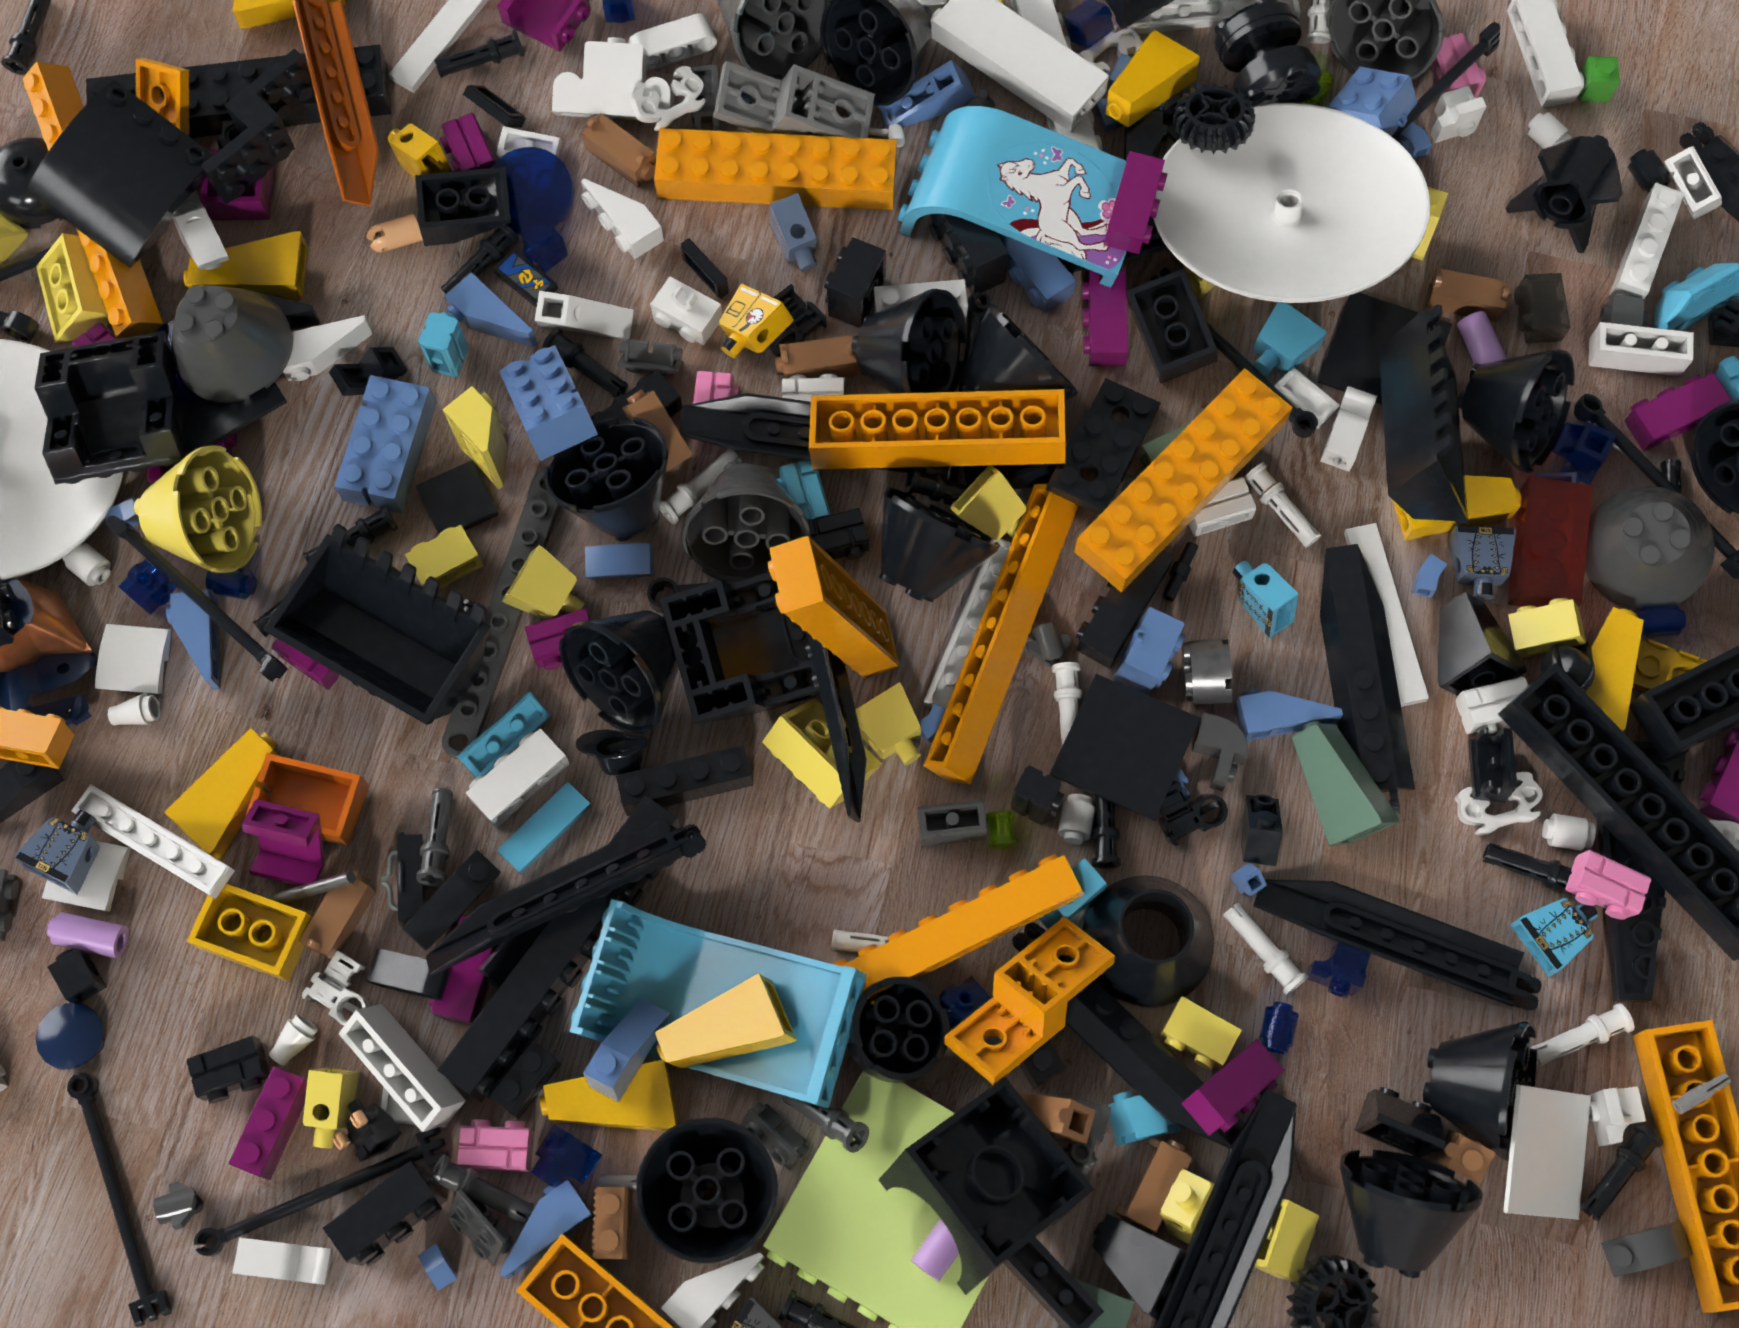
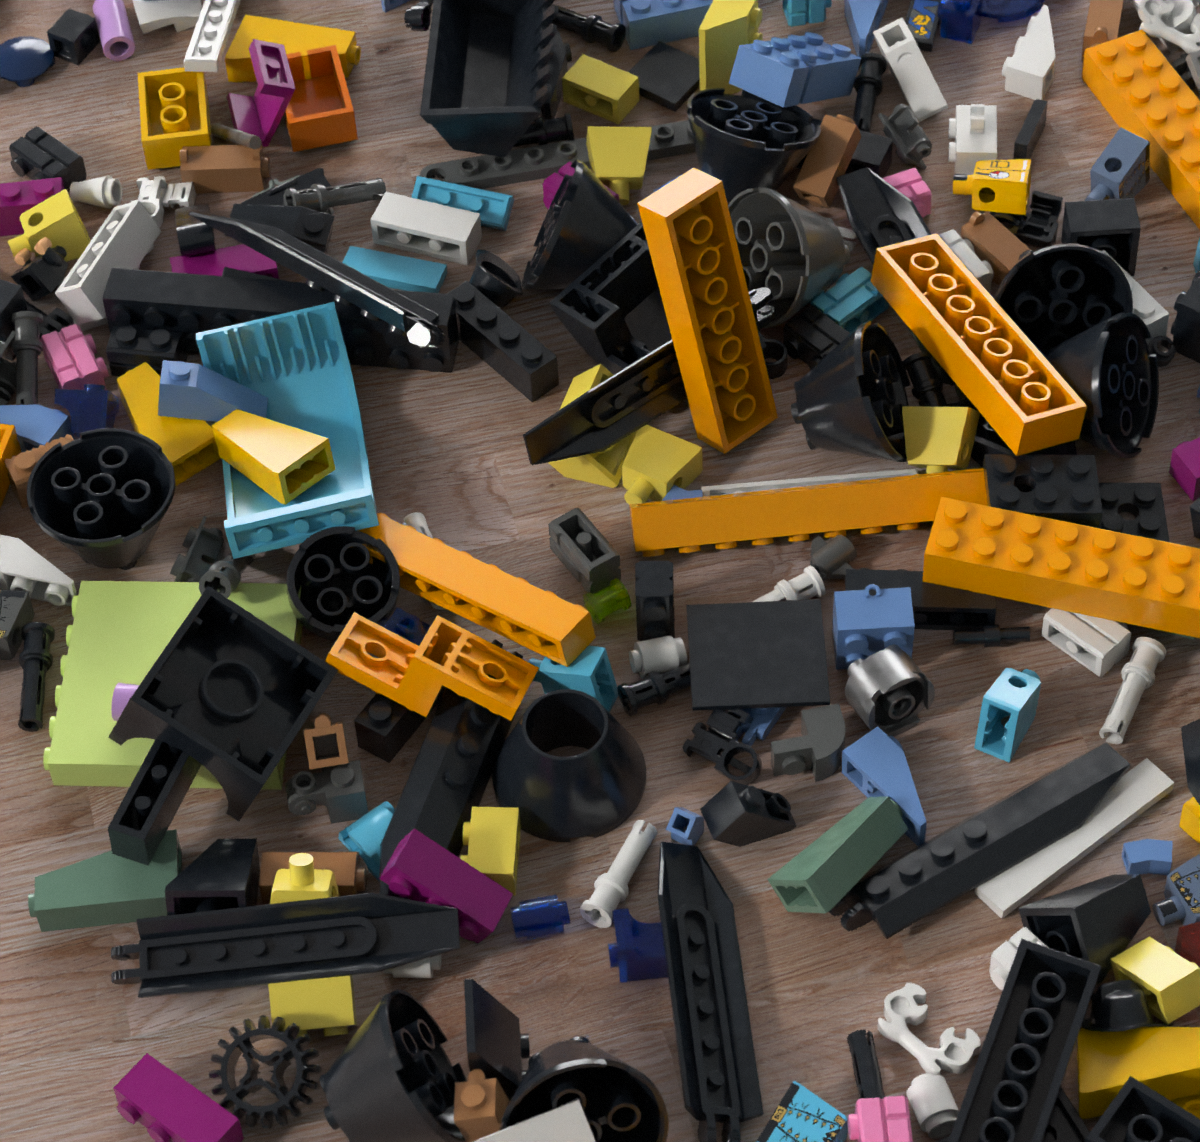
camera: 65 degrees right, 20 degrees down
(1492, 765) = (958, 998): black hinge -> none

